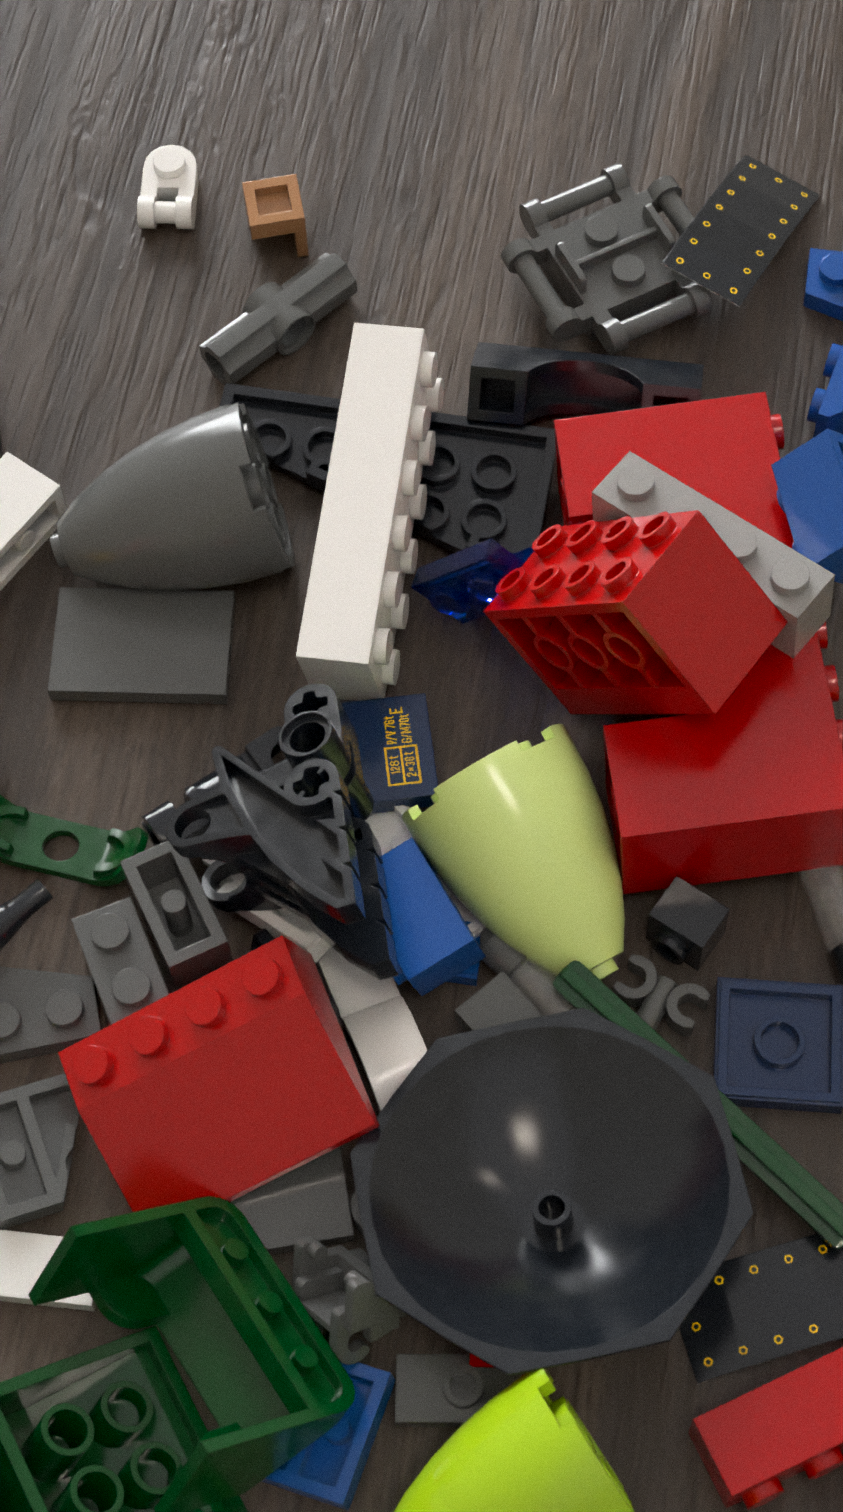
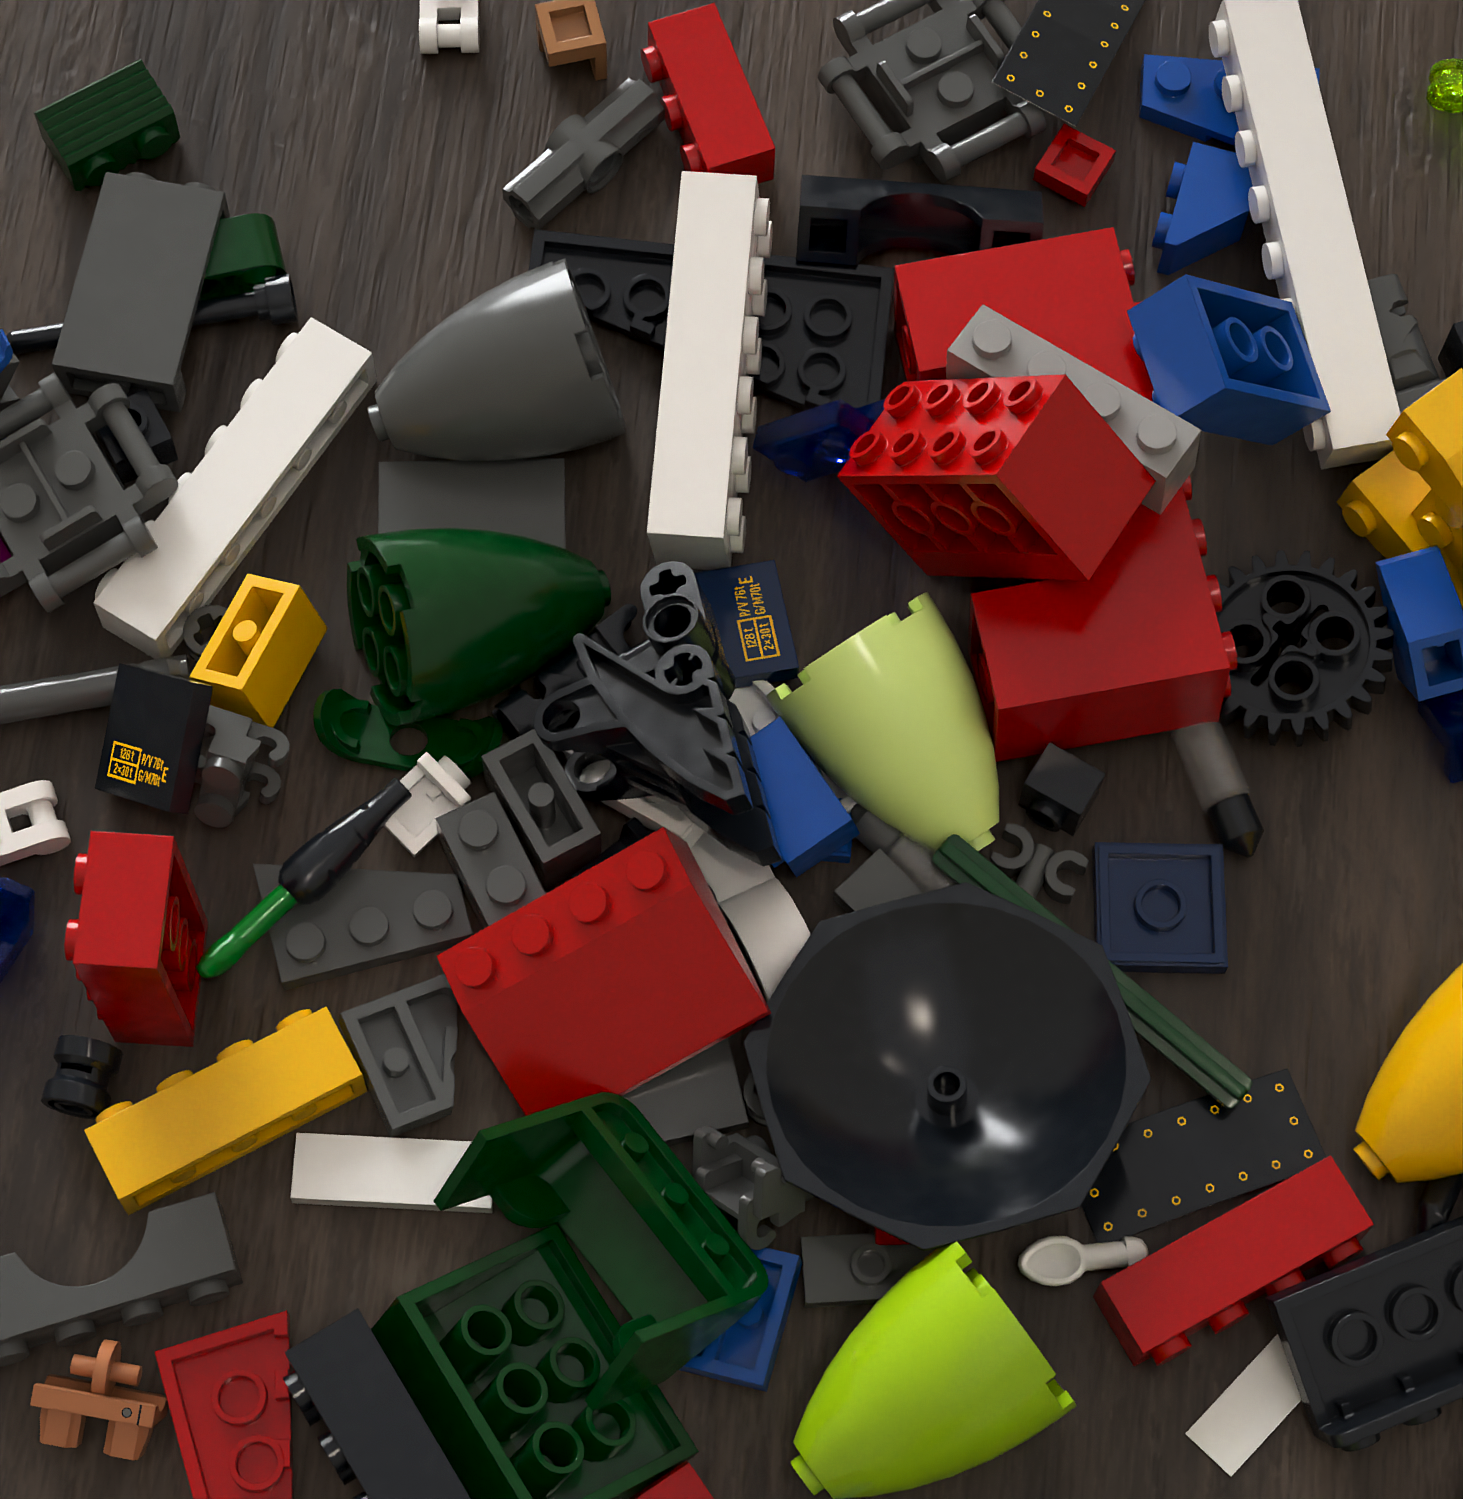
camera: 10 degrees left, 5 degrees up
(74, 894) = (434, 791): none -> white bracket
(122, 728) = (464, 614): none -> dark green cylinder
(397, 267) = (707, 95): none -> red brick
(659, 1393) = (1064, 1259): none -> white piece
(737, 344) = (1074, 165): none -> red plate

